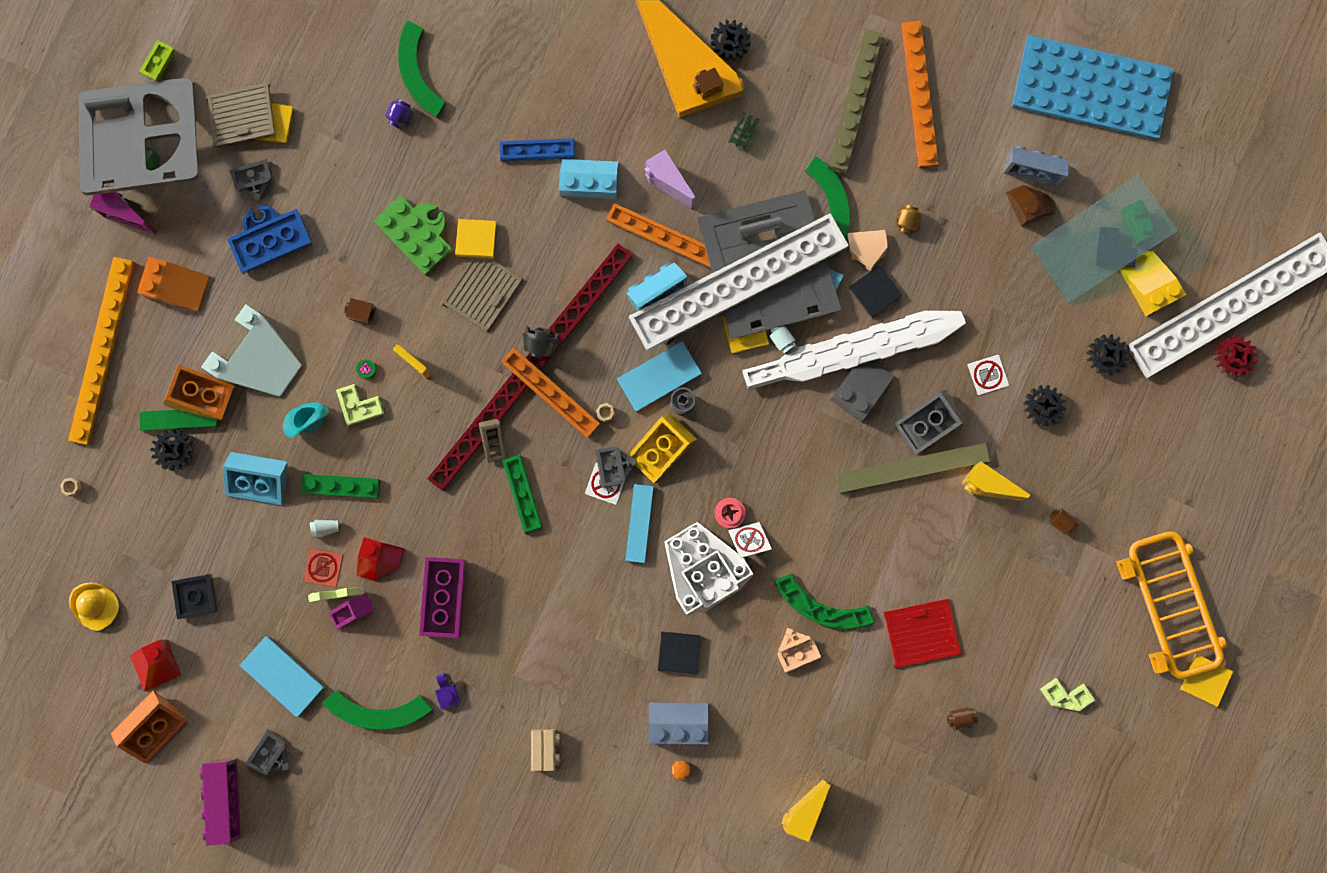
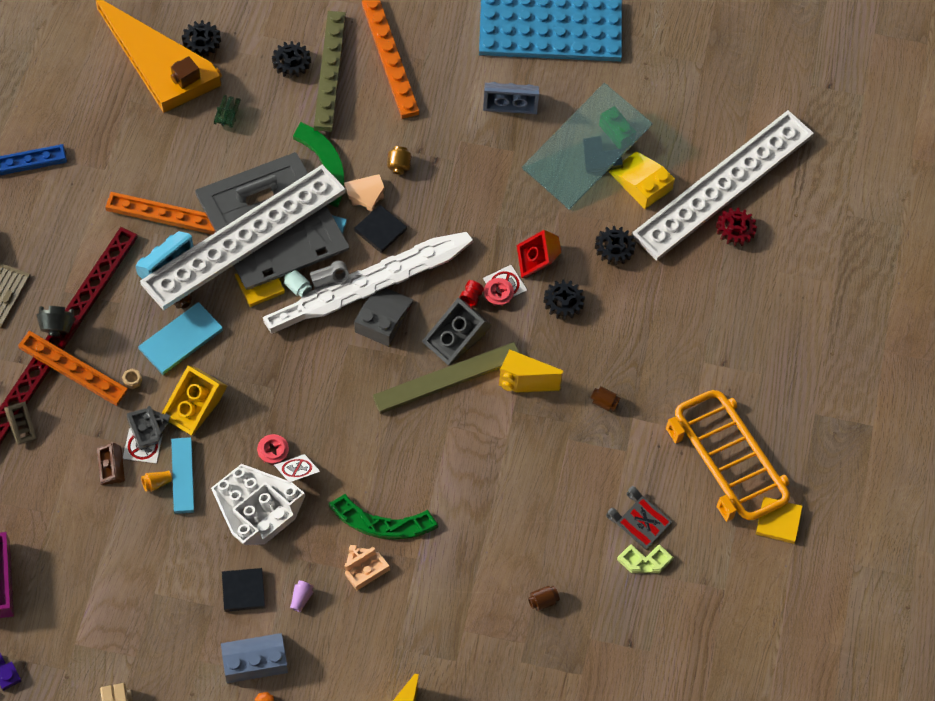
camera: 15 degrees left, 20 degrees down
(522, 494) = (58, 469): green tile -> none
(572, 498) = (110, 464): none -> reddish brown slope
(588, 179) = (83, 177): medium azure slope -> none
(611, 525) = (155, 480): none -> light orange cone
(666, 177) = (161, 161): lavender slope -> none
(682, 401) = (207, 353): dark grey wheel -> none
(732, 670) = (301, 595): none -> lavender cone
(813, 74) = (291, 59): none -> black gear
(823, 335) = (328, 275): none -> light grey piece
(922, 633) = (487, 527): red piece -> none
(953, 382) = (472, 292): none -> red wheel
(986, 378) = (503, 286): none -> coral gear
(1028, 351) = (537, 252): none -> red slope
(1030, 204) = (513, 132): reddish brown slope -> none
(1073, 655) = (642, 520): none -> dark grey flag

